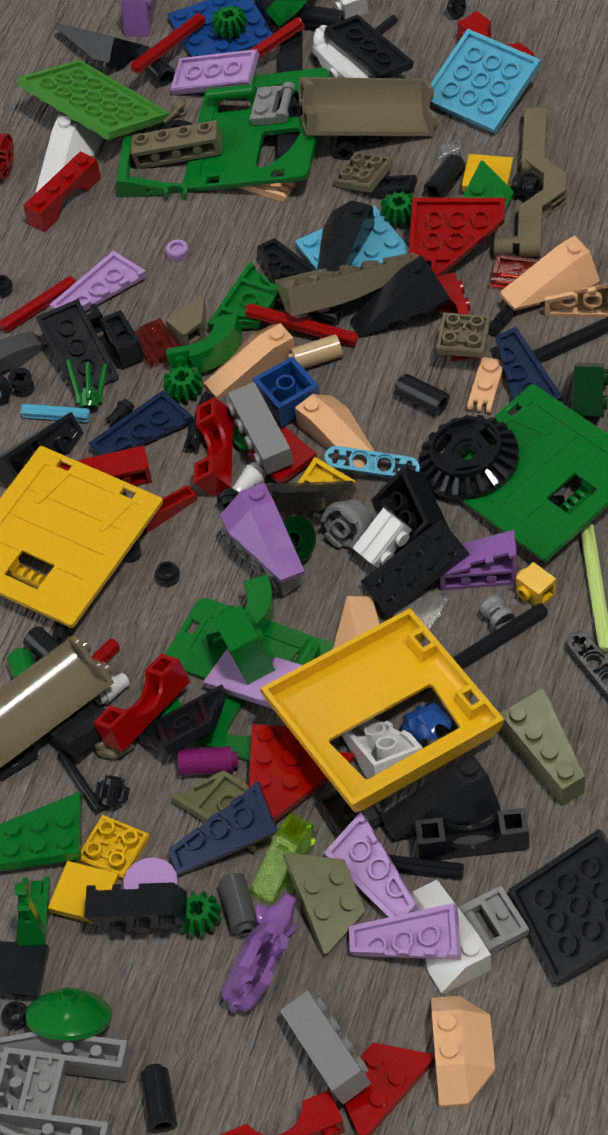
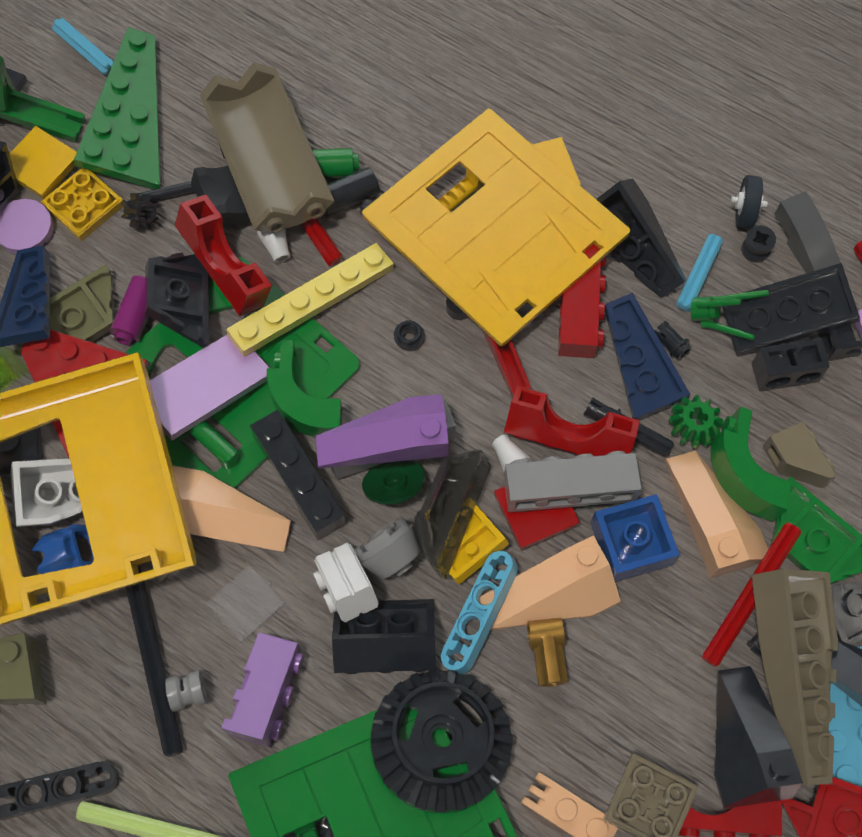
camera: 100 degrees right, 15 degrees up
(155, 341) = (779, 407): clear red plate -> none
(158, 641) = (309, 299): none -> light yellow plate
(226, 497) = (490, 427): black plate -> none
(245, 643) = (237, 365): green brick -> none
(292, 612) = (298, 474): none -> black arch
(317, 351) = (697, 598): tan brick -> none
(377, 424) = (547, 641): none -> pearl gold piece
(414, 568) = (286, 609): black plate -> none
(422, 394) = (578, 716): black brick -> none
(535, 584) = (207, 752): yellow brick -> none

